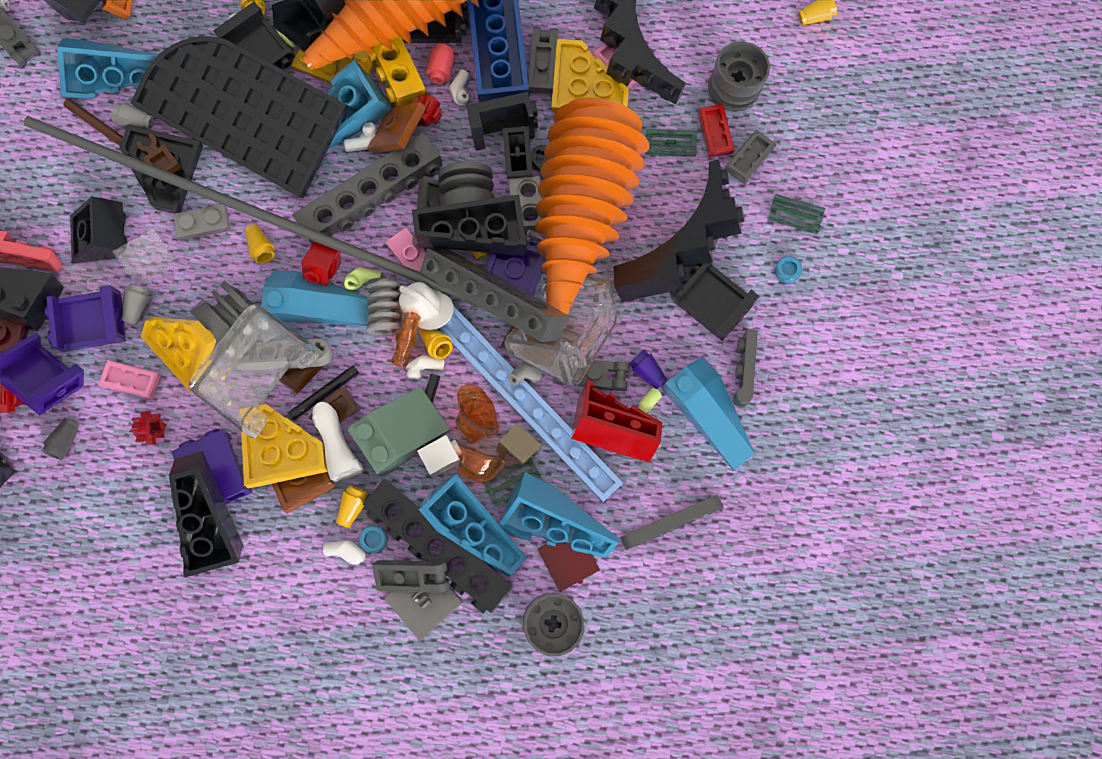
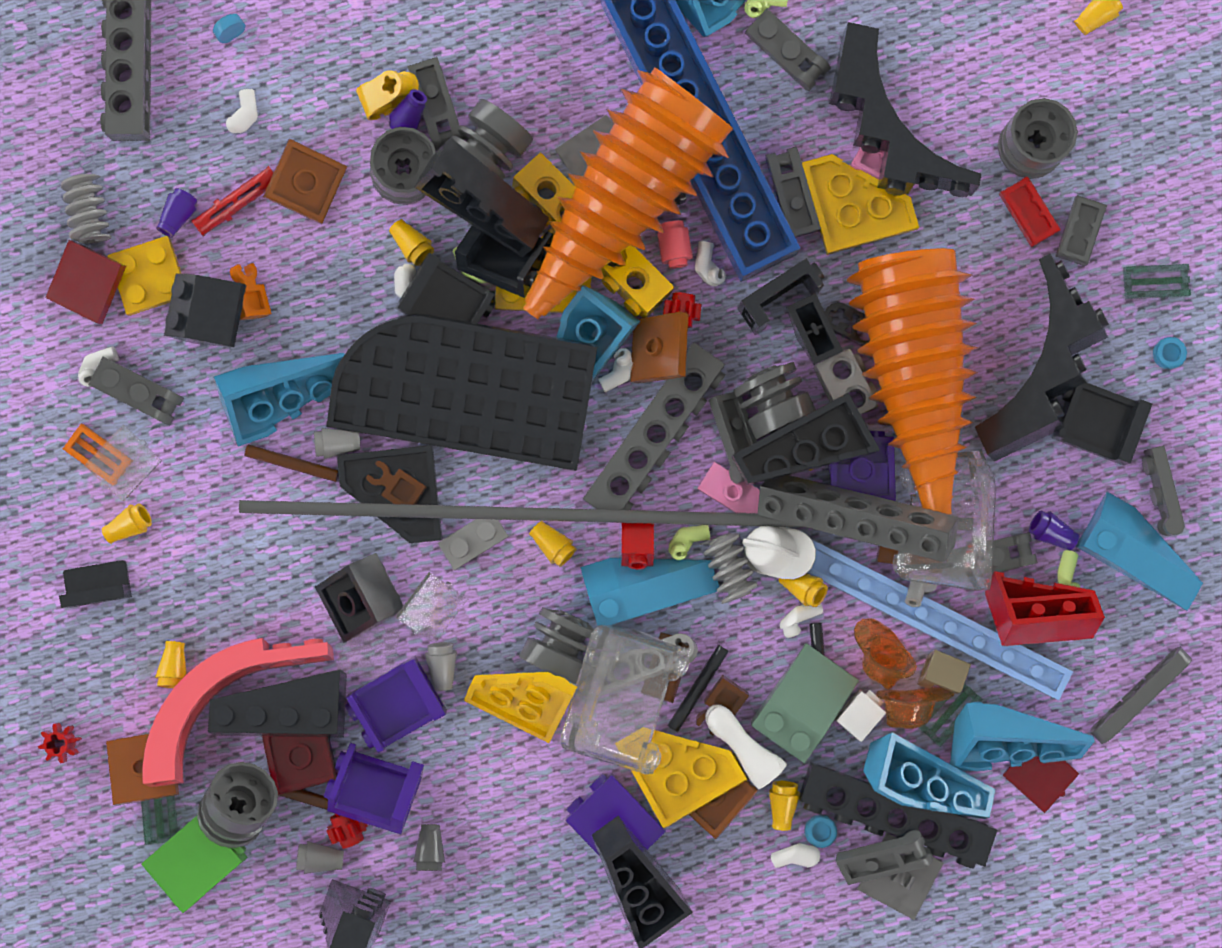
camera: 15 degrees left, 10 degrees up
(129, 379) = (475, 754): bright pink plate -> none
(148, 427) = (523, 801): red gear -> none
(406, 339) = (772, 597): clear orange pin -> none
(562, 638) = (1070, 864): dark grey wheel -> none
(676, 152) = (951, 242): clear green tile -> none

